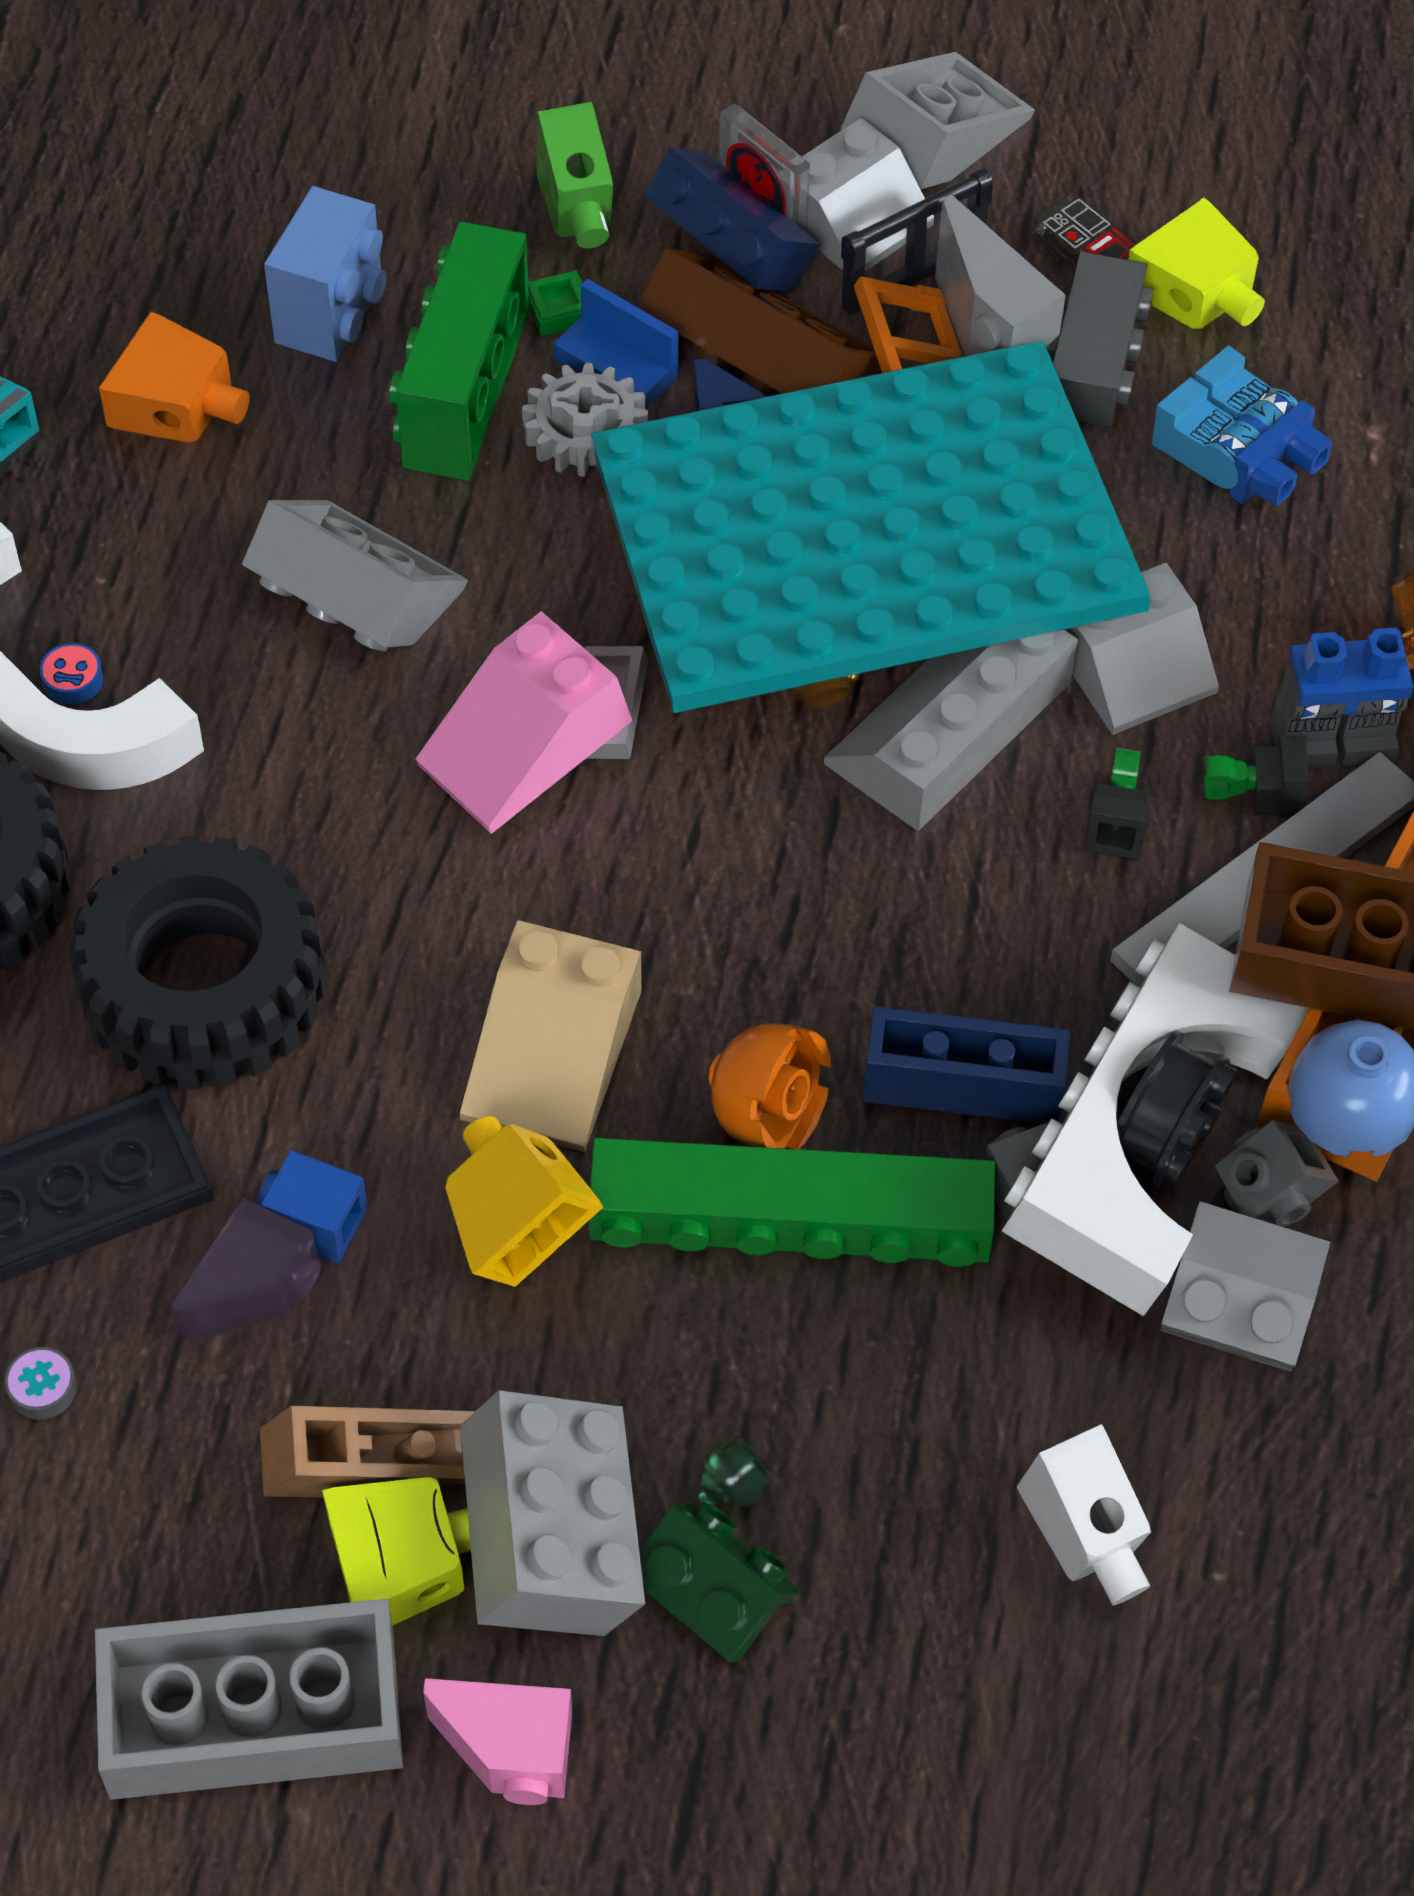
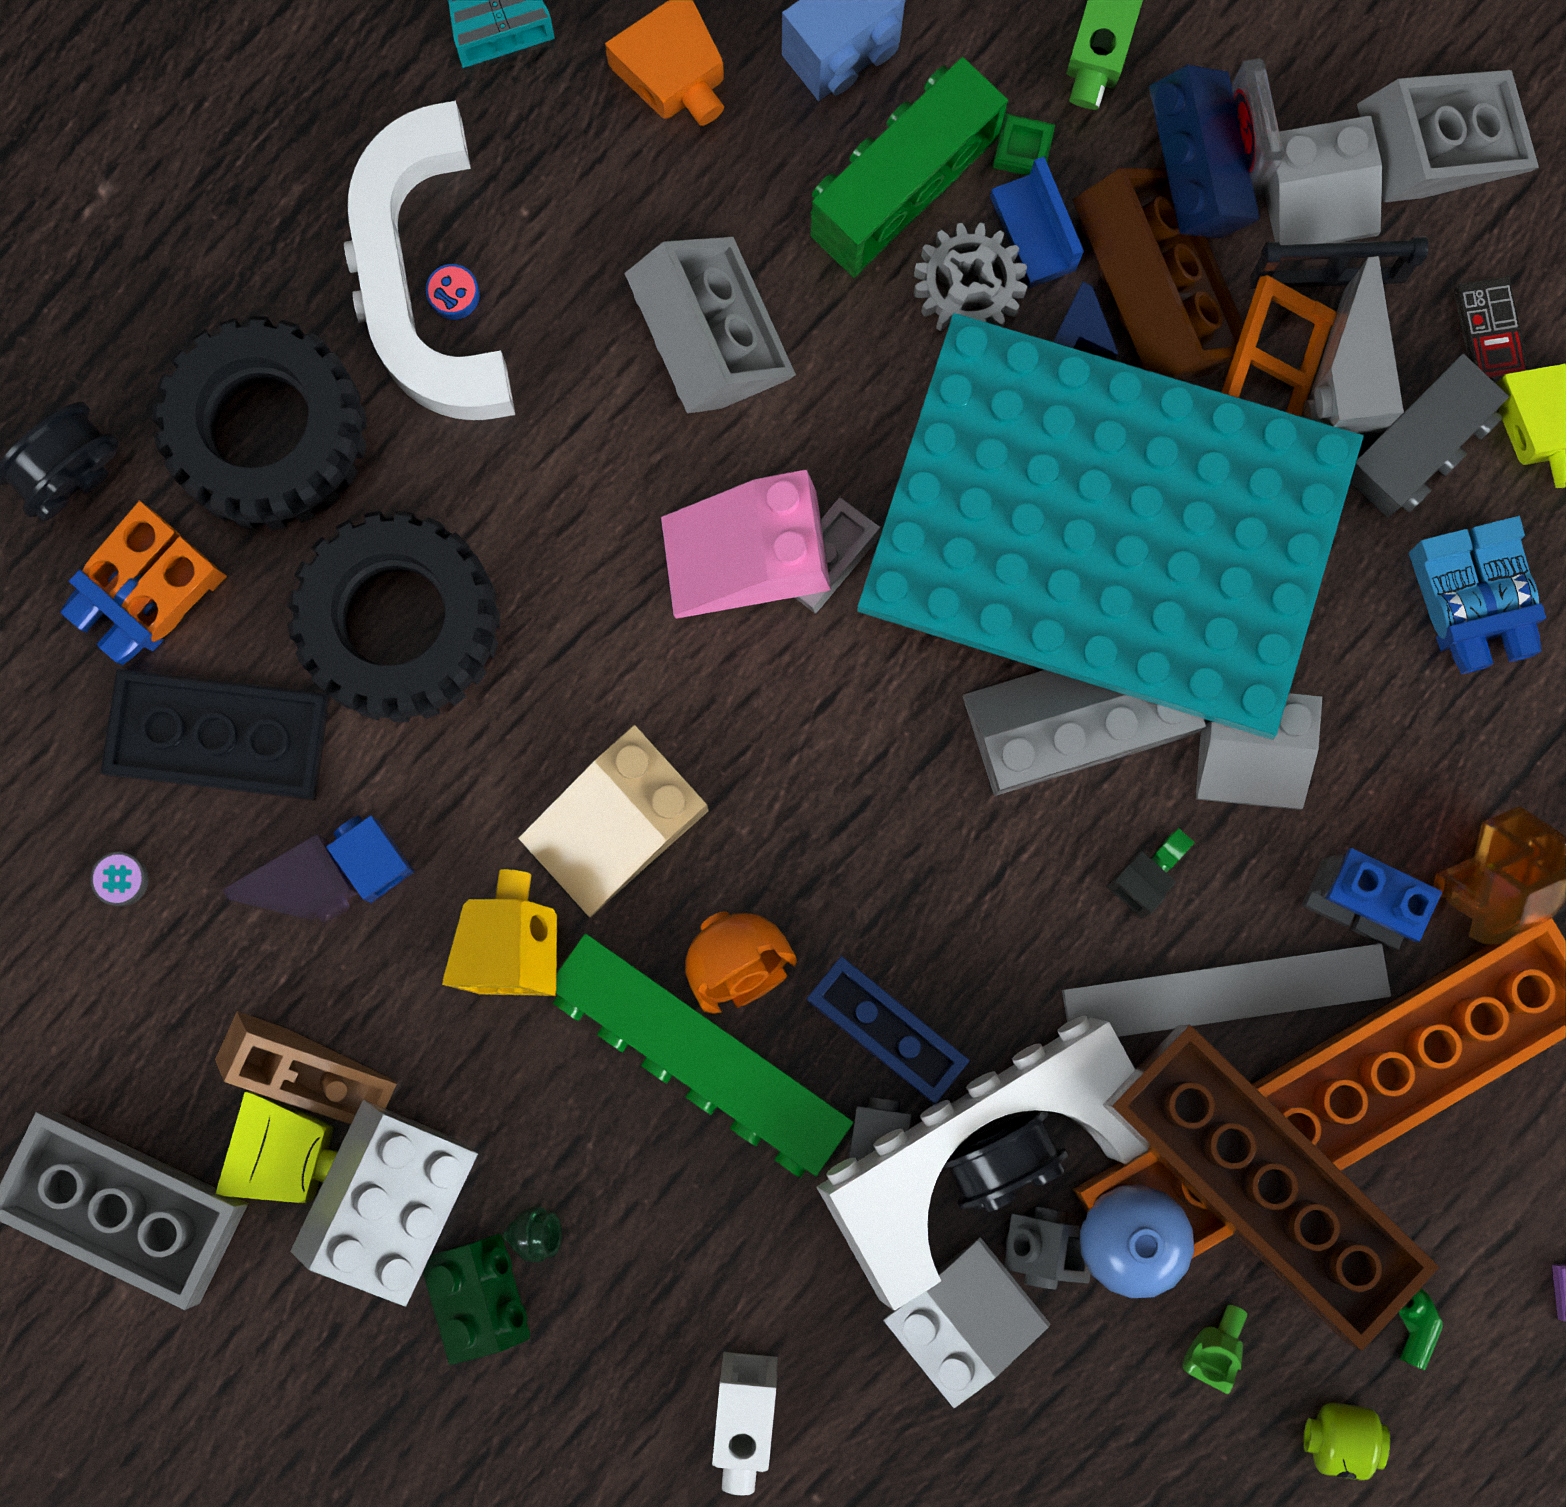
camera: 30 degrees right, 25 degrees up
(506, 1734) = (271, 1330): bright pink slope -> none
(1276, 777) = (1284, 921): pearl dark grey piece -> none

